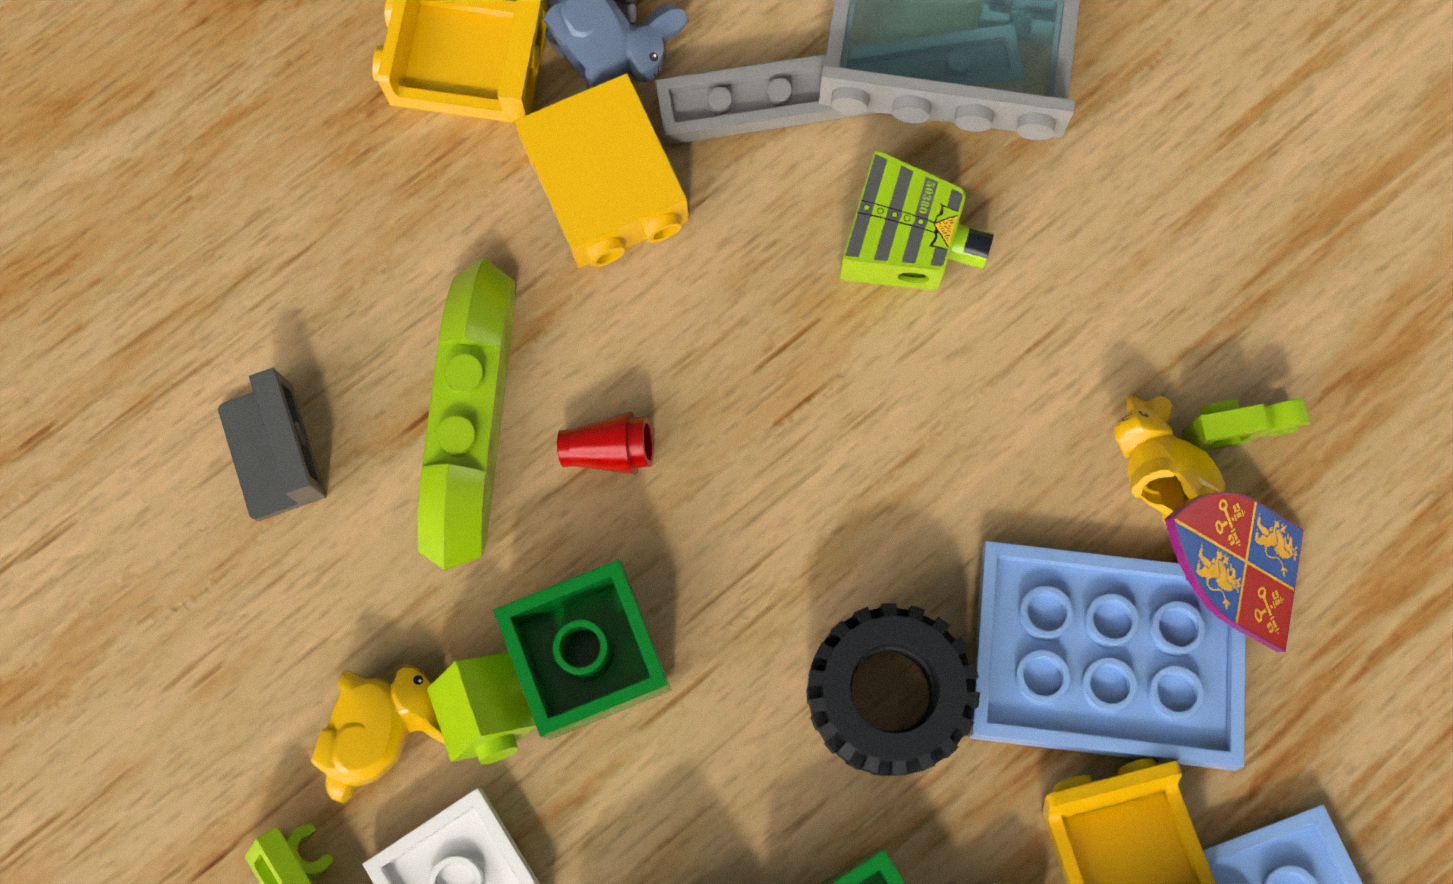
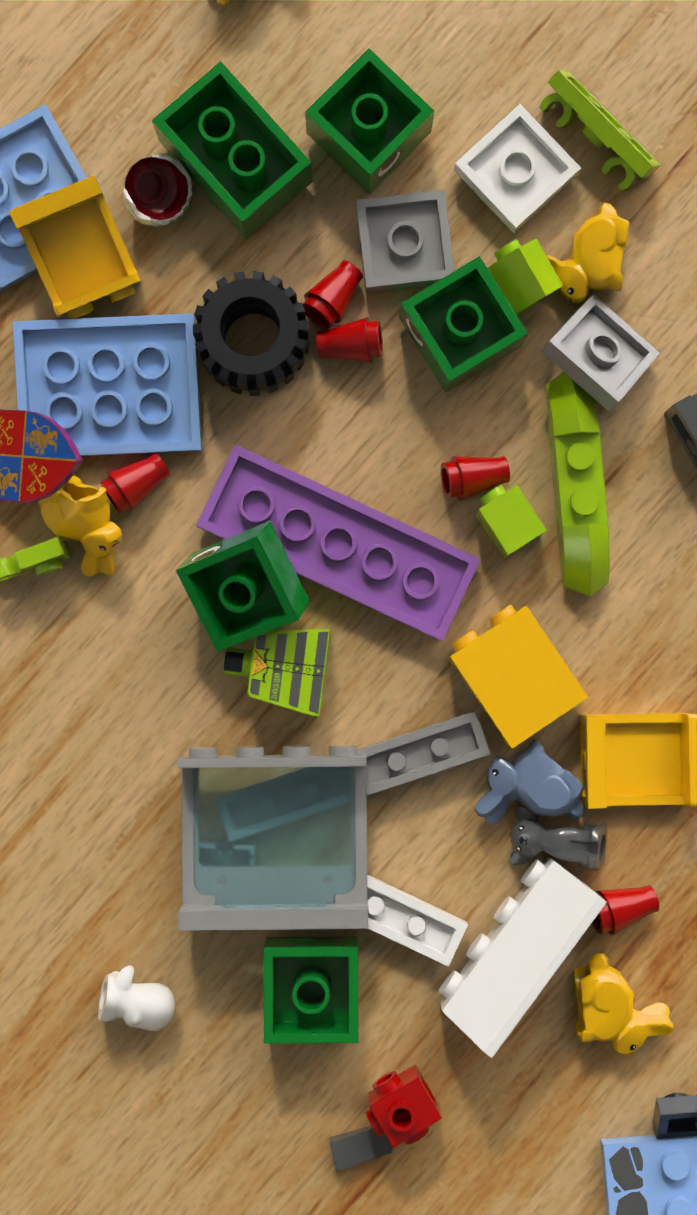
camera: 165 degrees right, 10 degrees up
(395, 579) = (600, 352): none -> light grey plate
(571, 373) = (509, 519): none -> lime brick
(642, 800) = (404, 240): none -> light grey plate
(746, 662) = (352, 341): none -> red cone
(763, 736) = (330, 297): none -> red cone
(813, 384) = (343, 542): none -> medium lavender plate
(953, 329) = (243, 586): none -> green brick
(1086, 511) = (134, 482): none -> red cone

